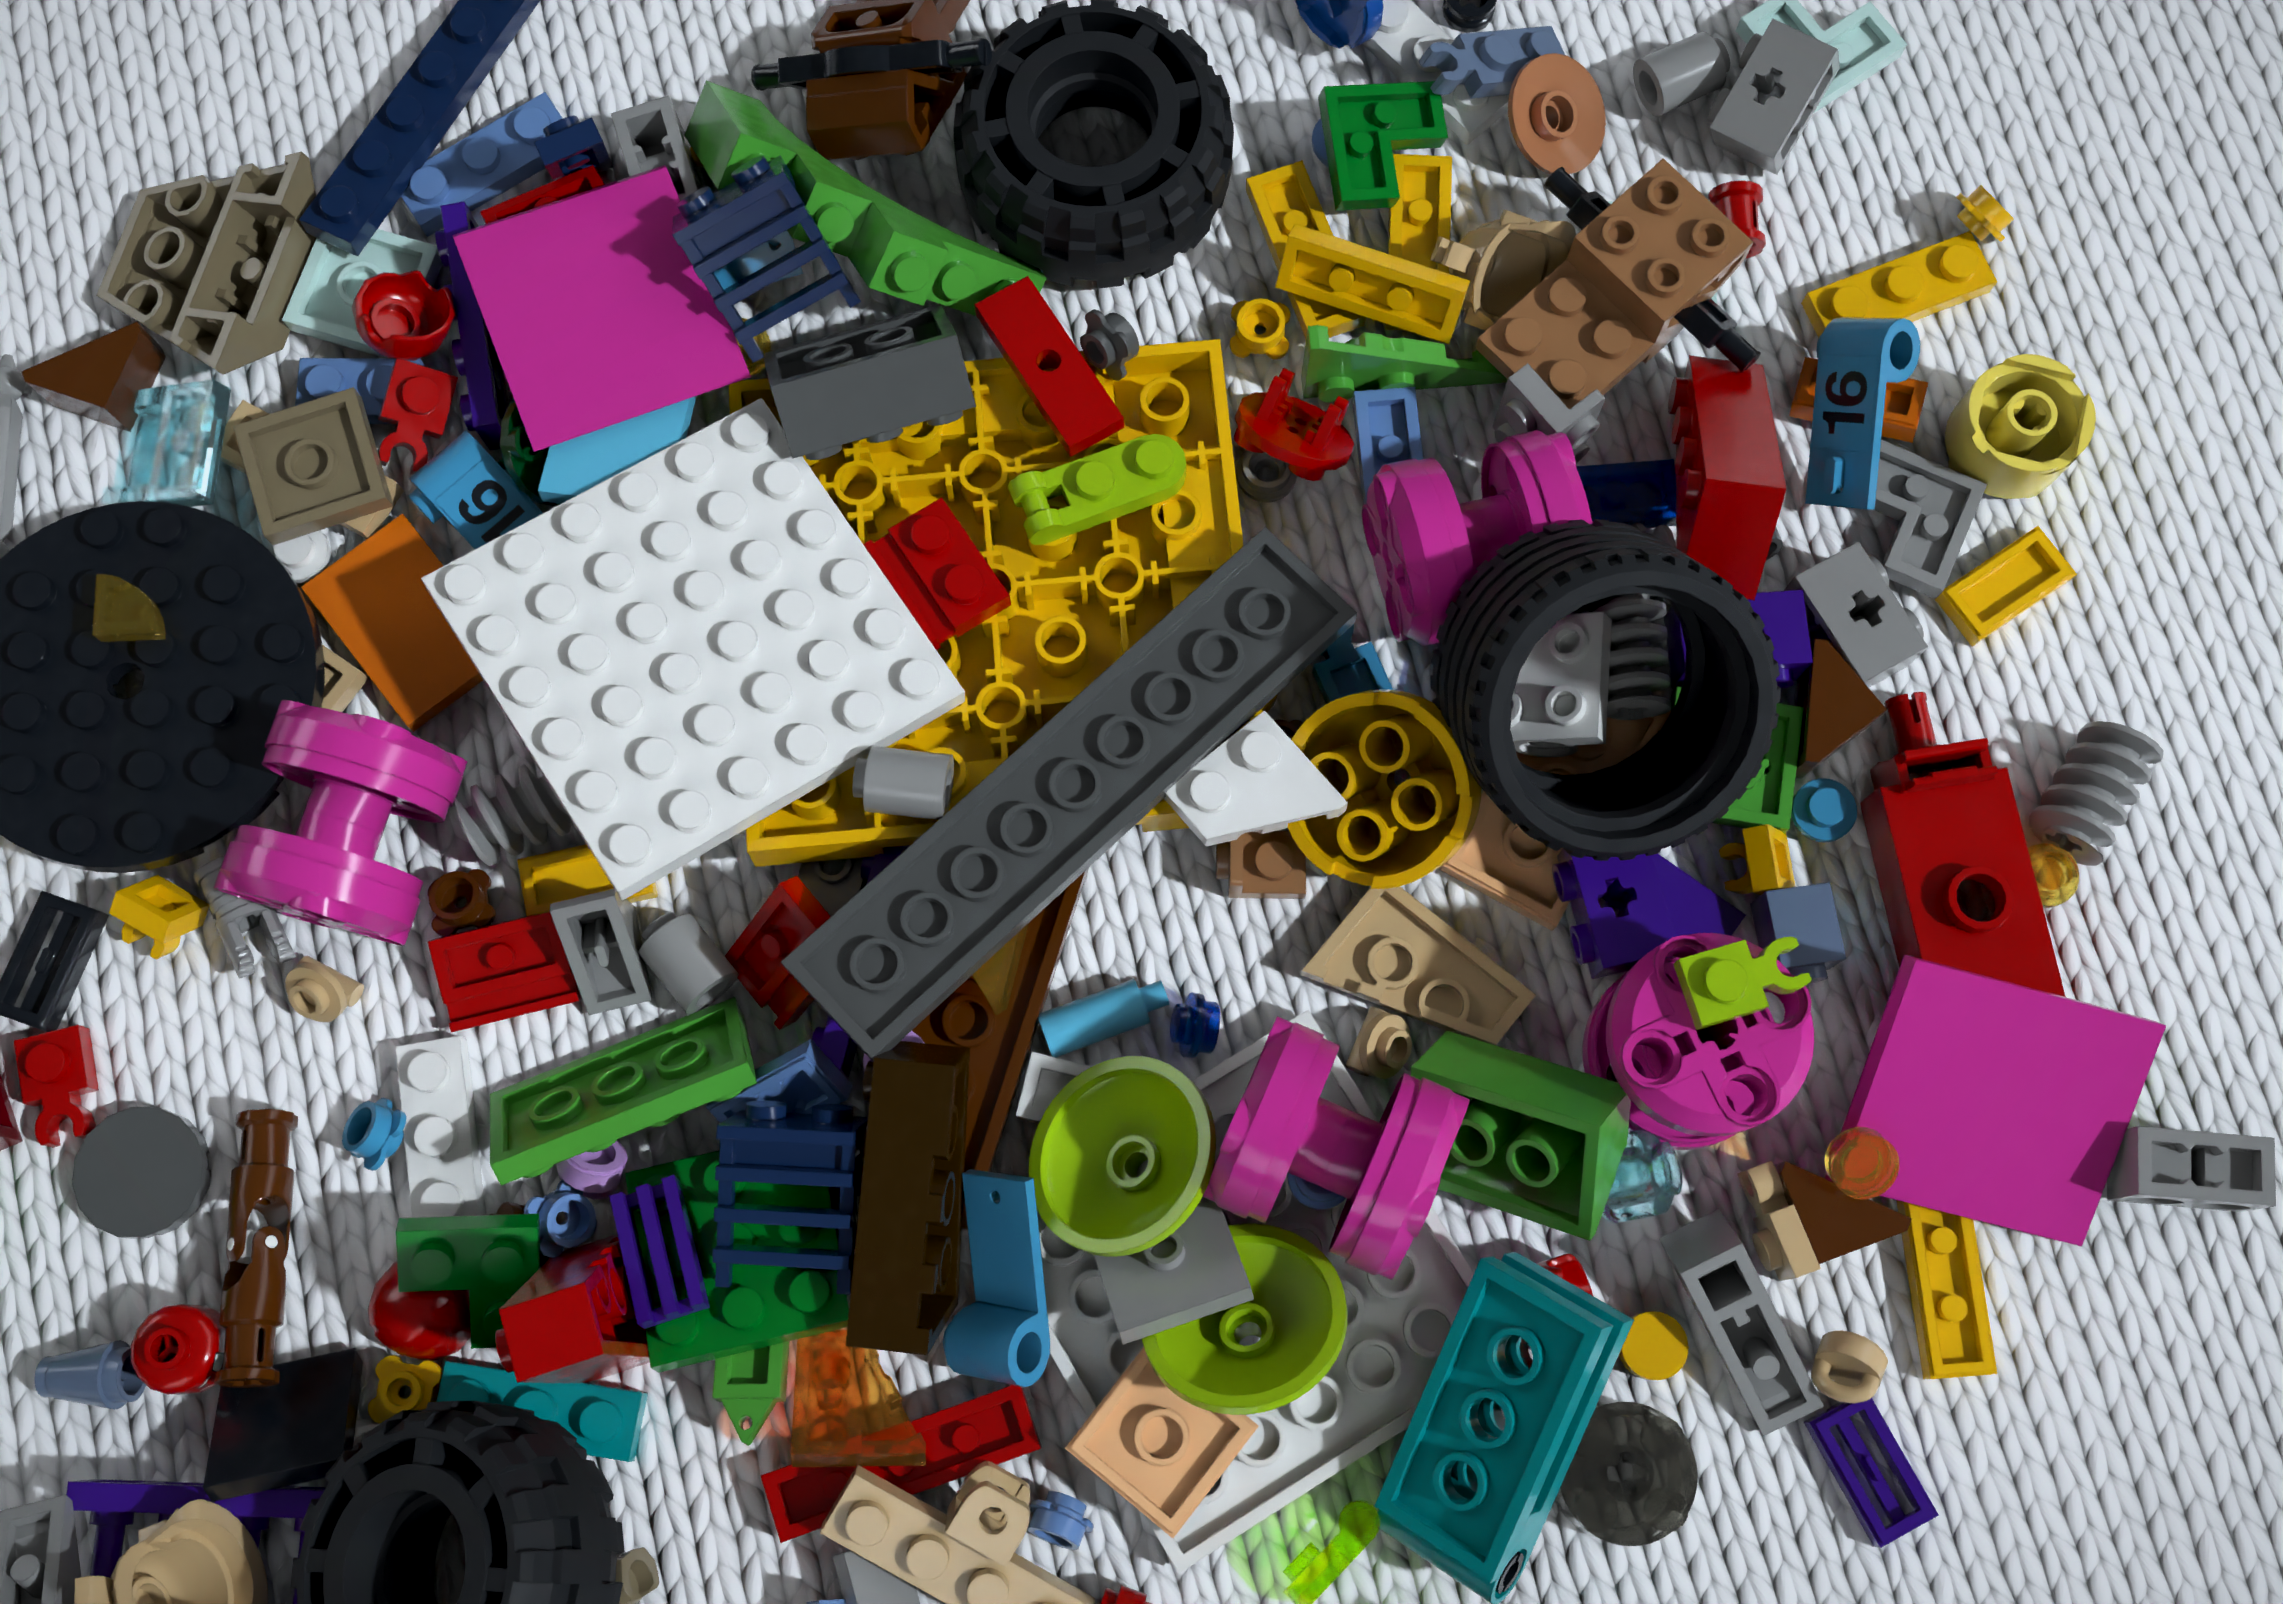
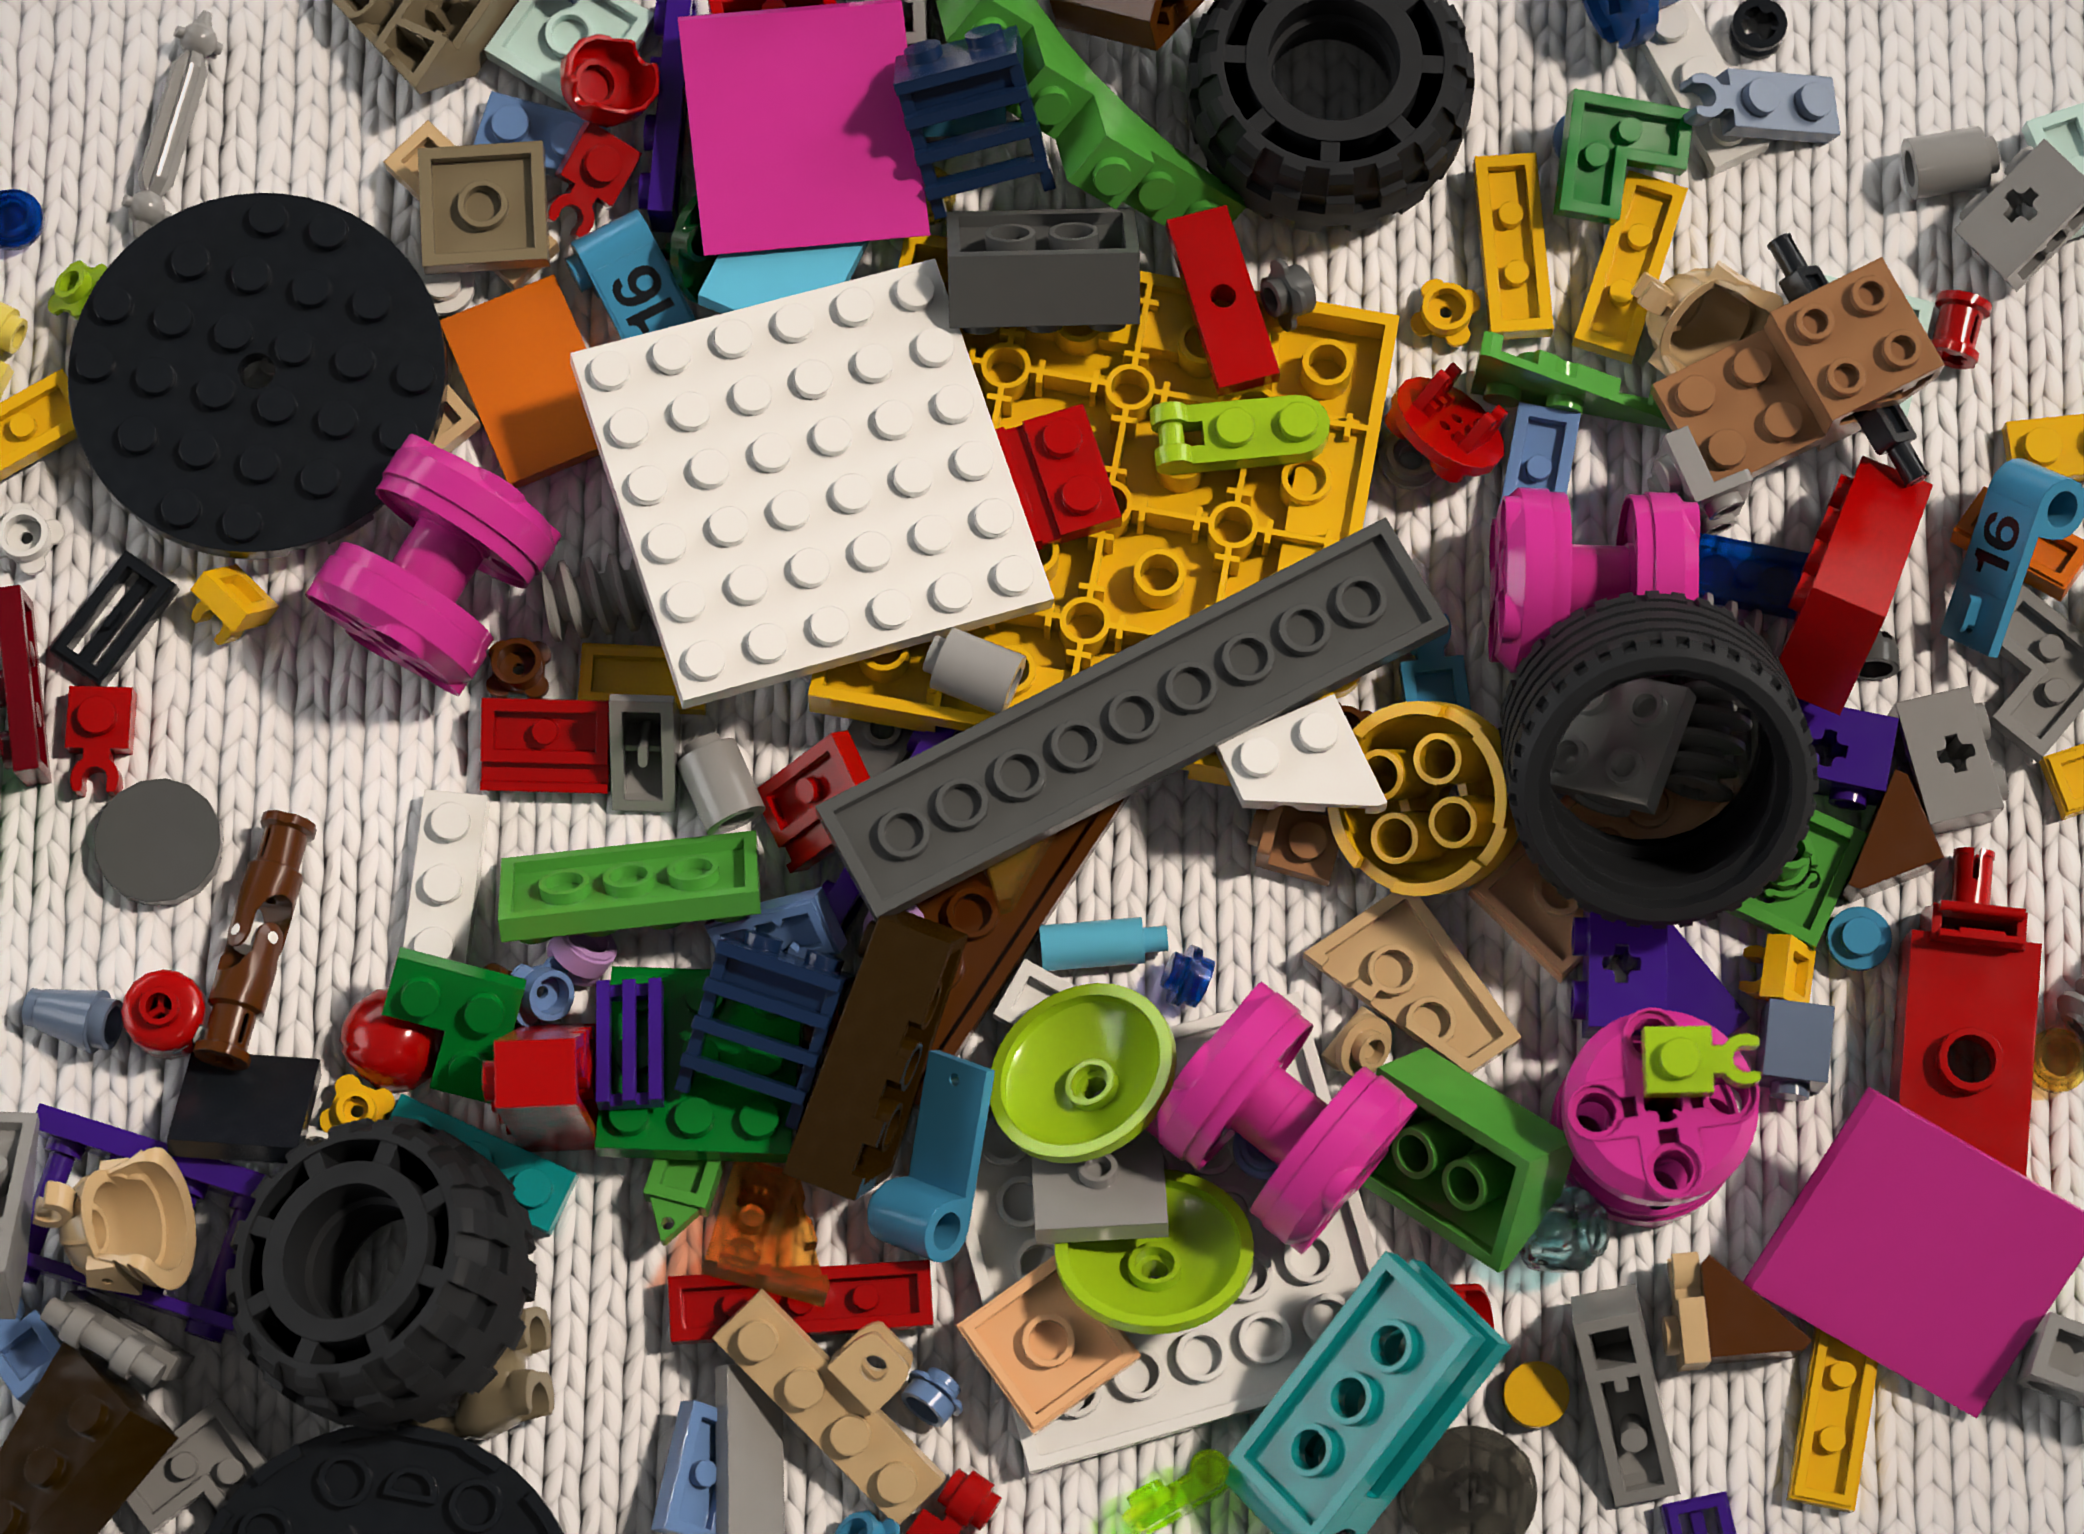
camera: 15 degrees right, 0 degrees up
(101, 376) = (295, 61): reddish brown slope -> none
(124, 612) = (275, 306): clear yellow tile -> none
(178, 443) = (364, 152): clear light blue plate -> none
(238, 916) = (306, 623): light grey hinge -> none
(320, 990) = (365, 717): tan plate -> none
(374, 1132) = (386, 864): dark azure plate -> none
(1372, 283) = (1565, 301): yellow plate -> none
(1556, 113) = (1827, 173): nougat dish -> none
(1851, 1362) = (1713, 1461): tan tile -> none
(1862, 1163) = (1777, 1273): tile -> none

